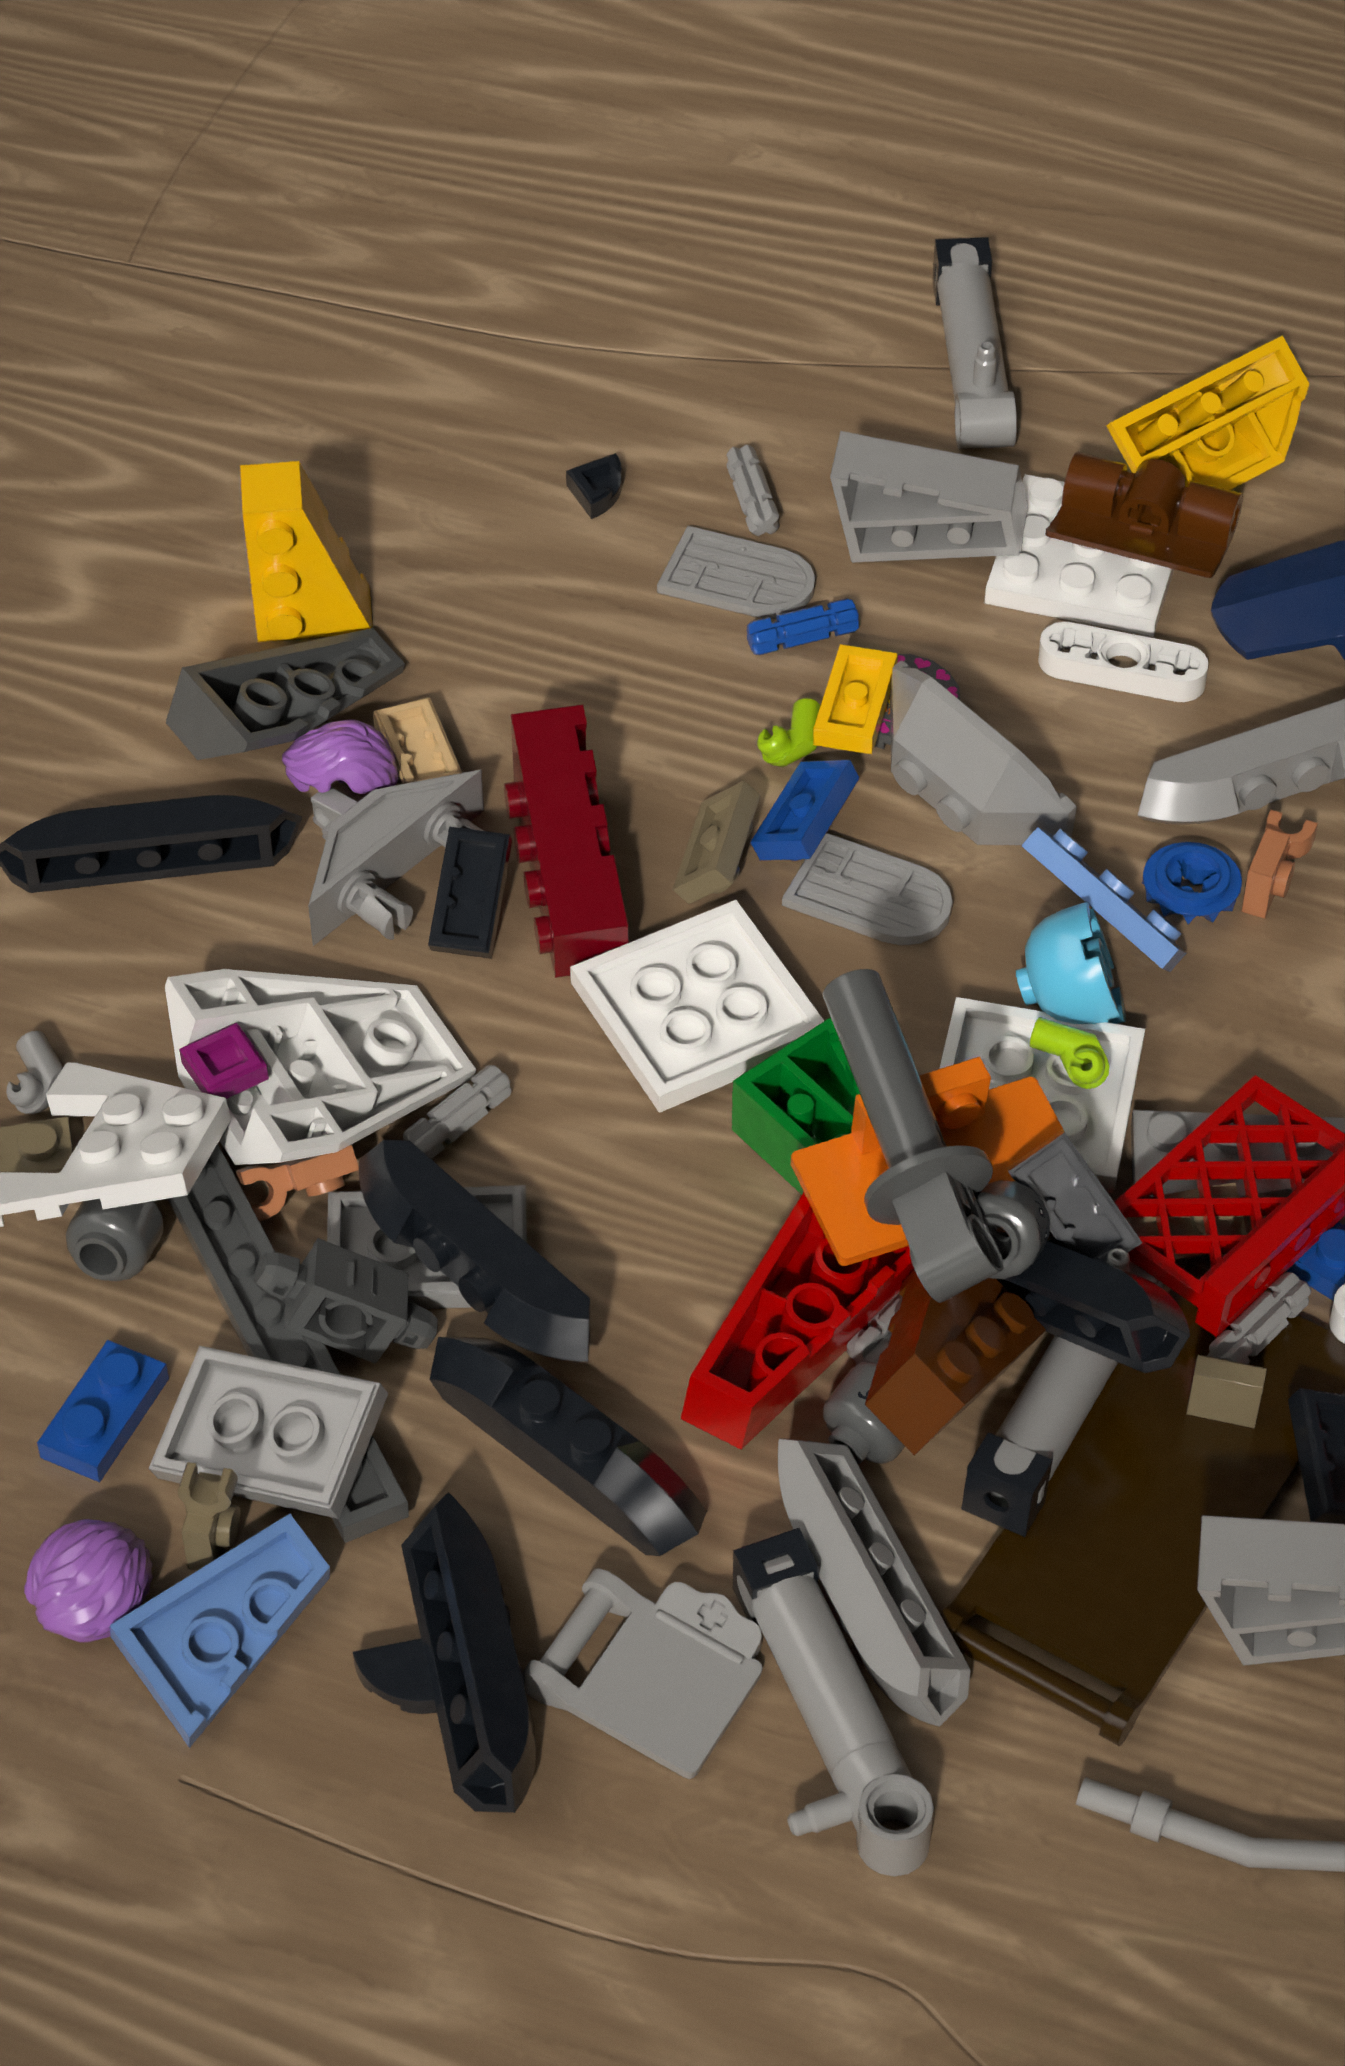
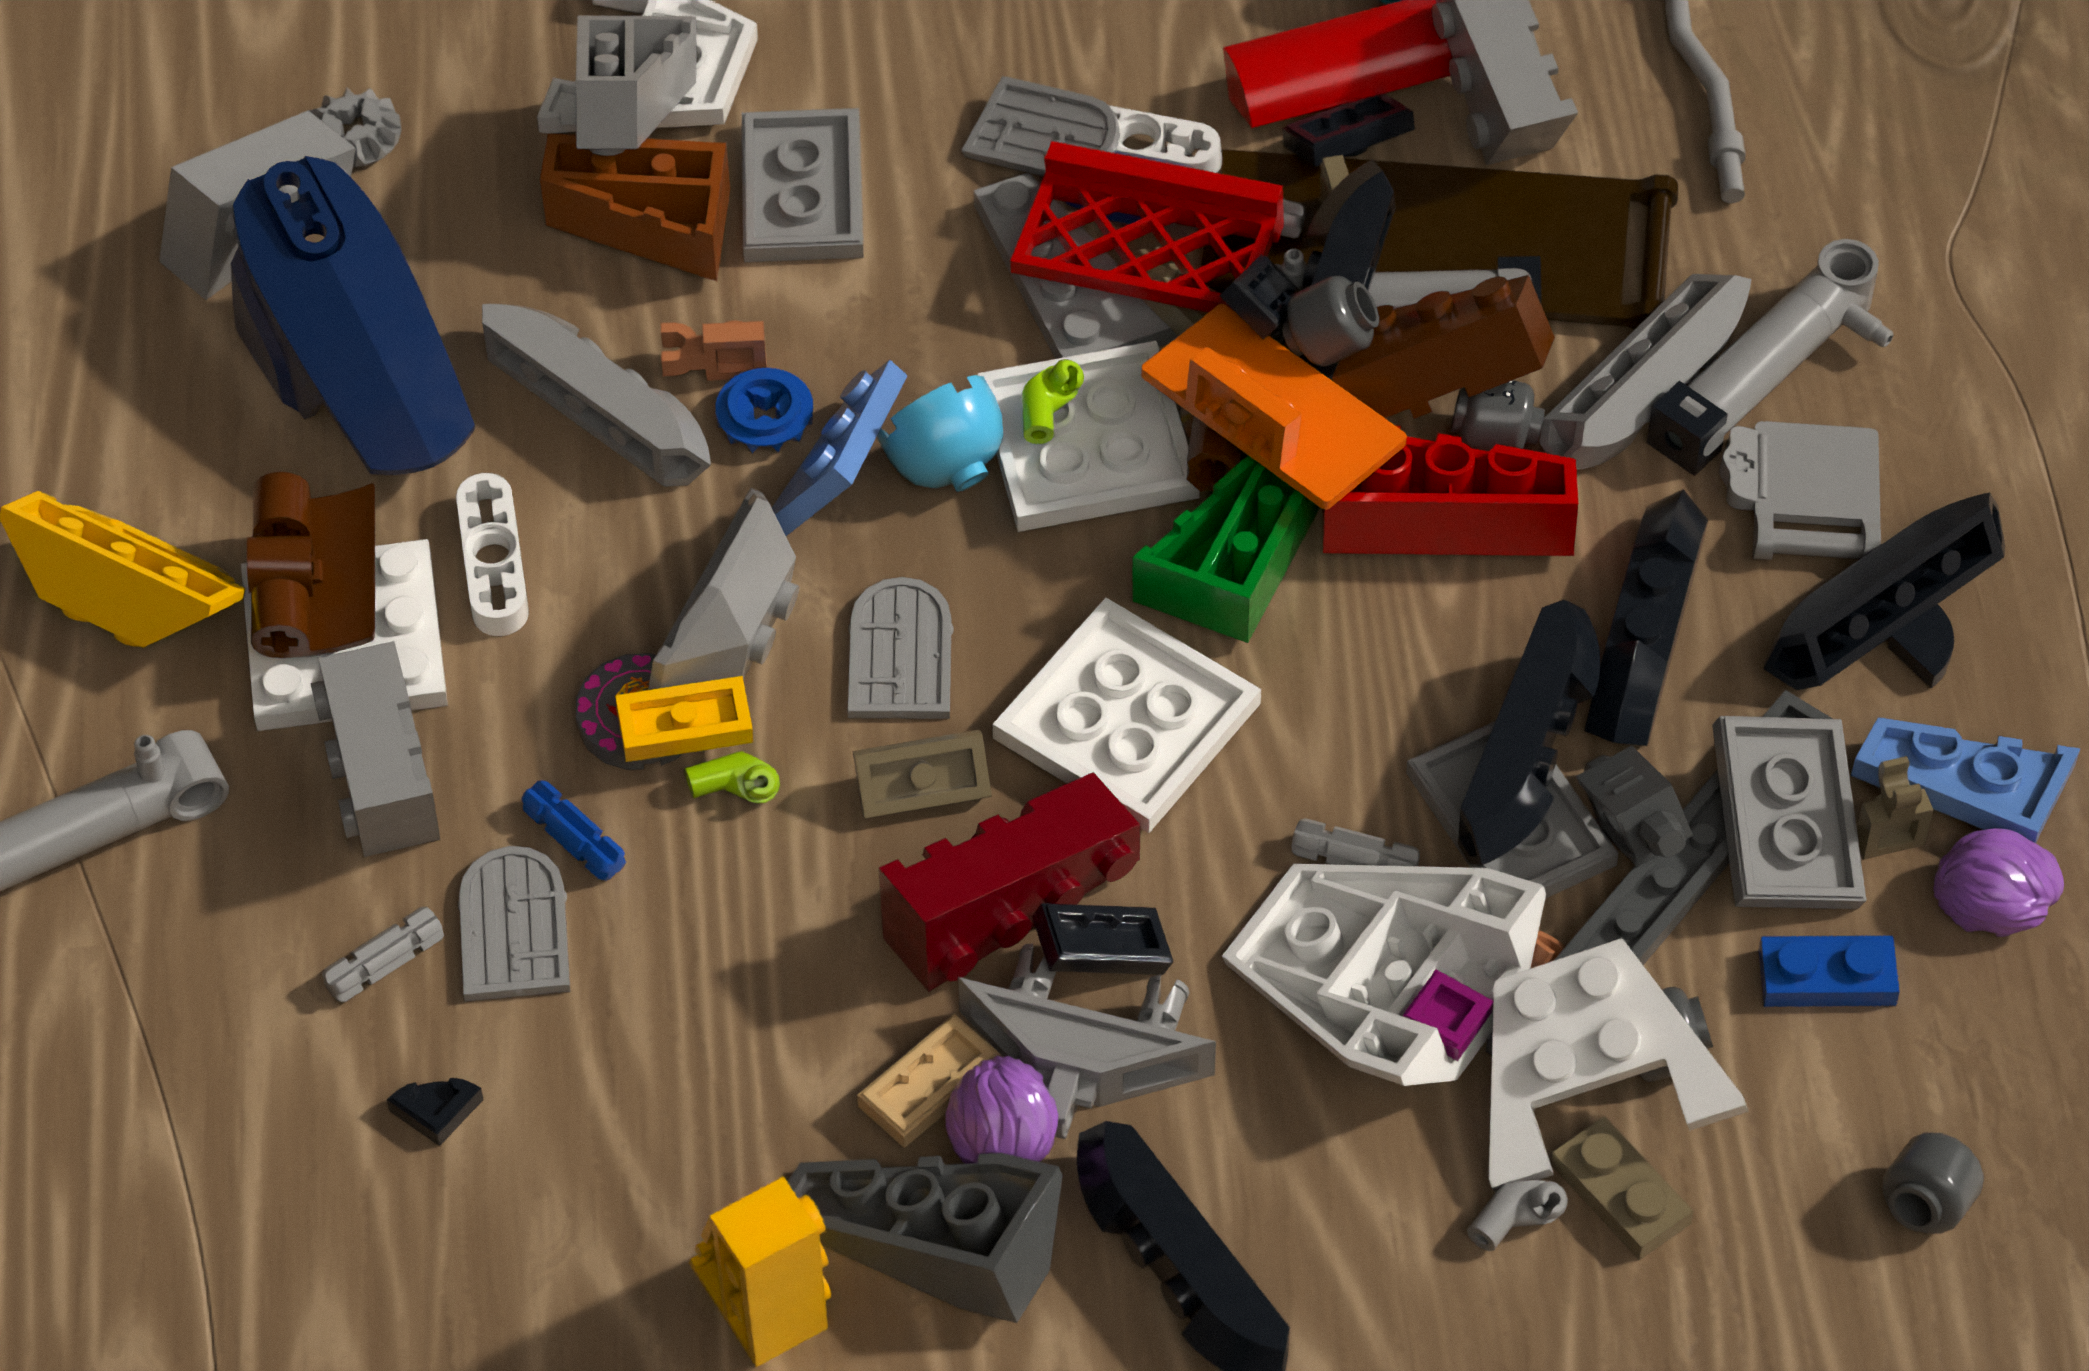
camera: 115 degrees left, 5 degrees up
(805, 810) = (838, 719): blue plate -> none
(927, 1182) = (1353, 340): dark grey piece -> none

